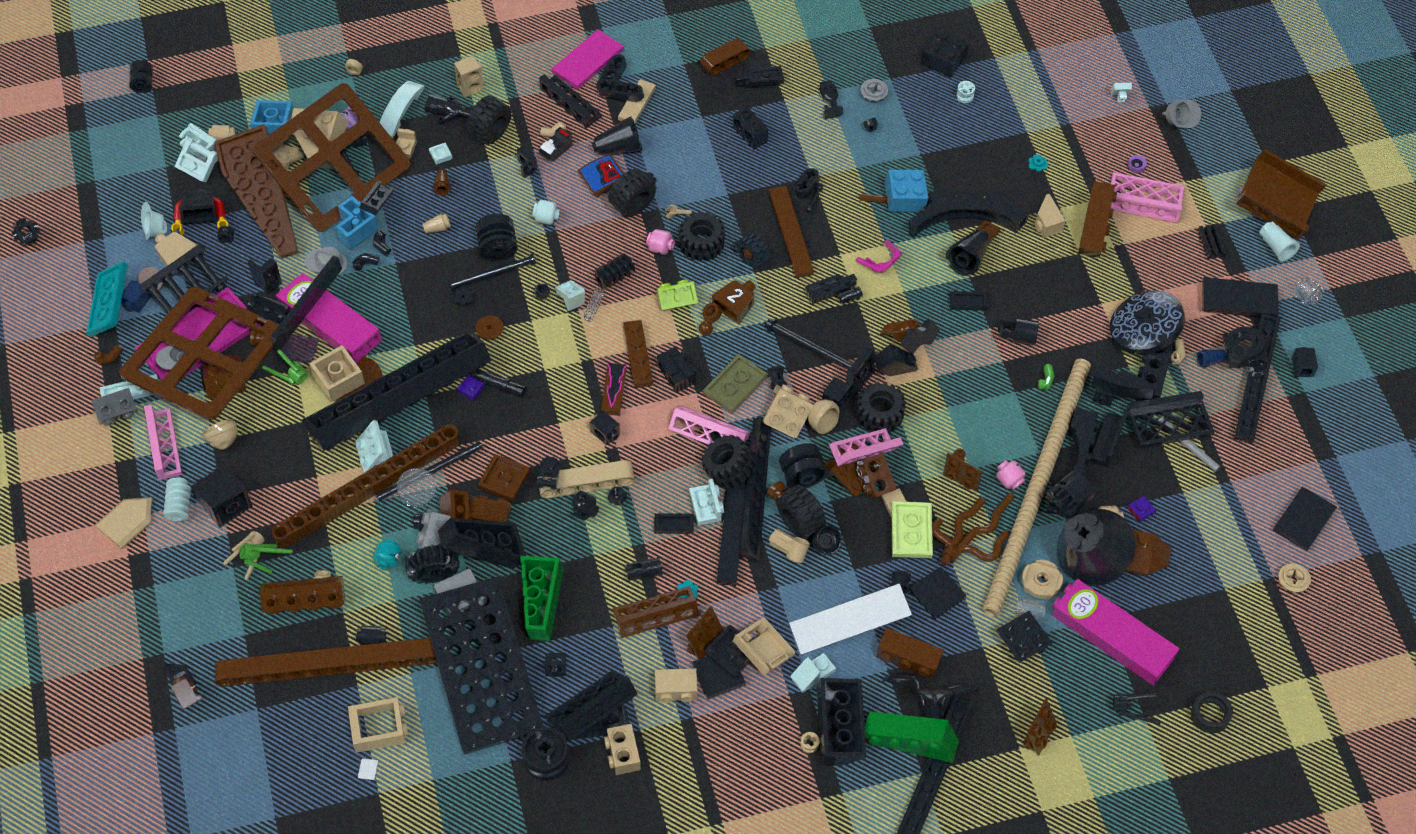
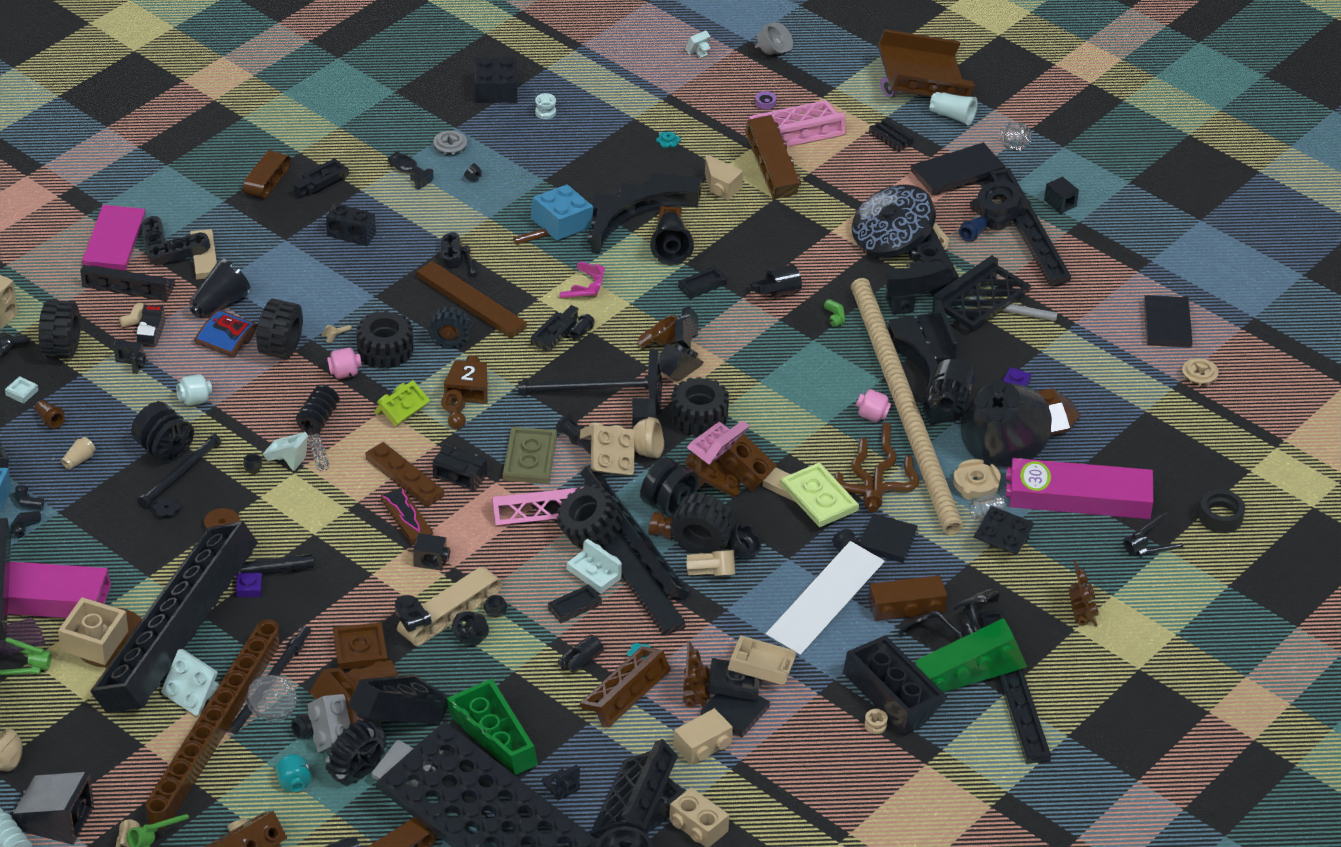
camera: 35 degrees left, 15 degrees down
(810, 672) = (826, 662): light aqua slope -> none
(960, 471) = (828, 420): reddish brown hinge -> none

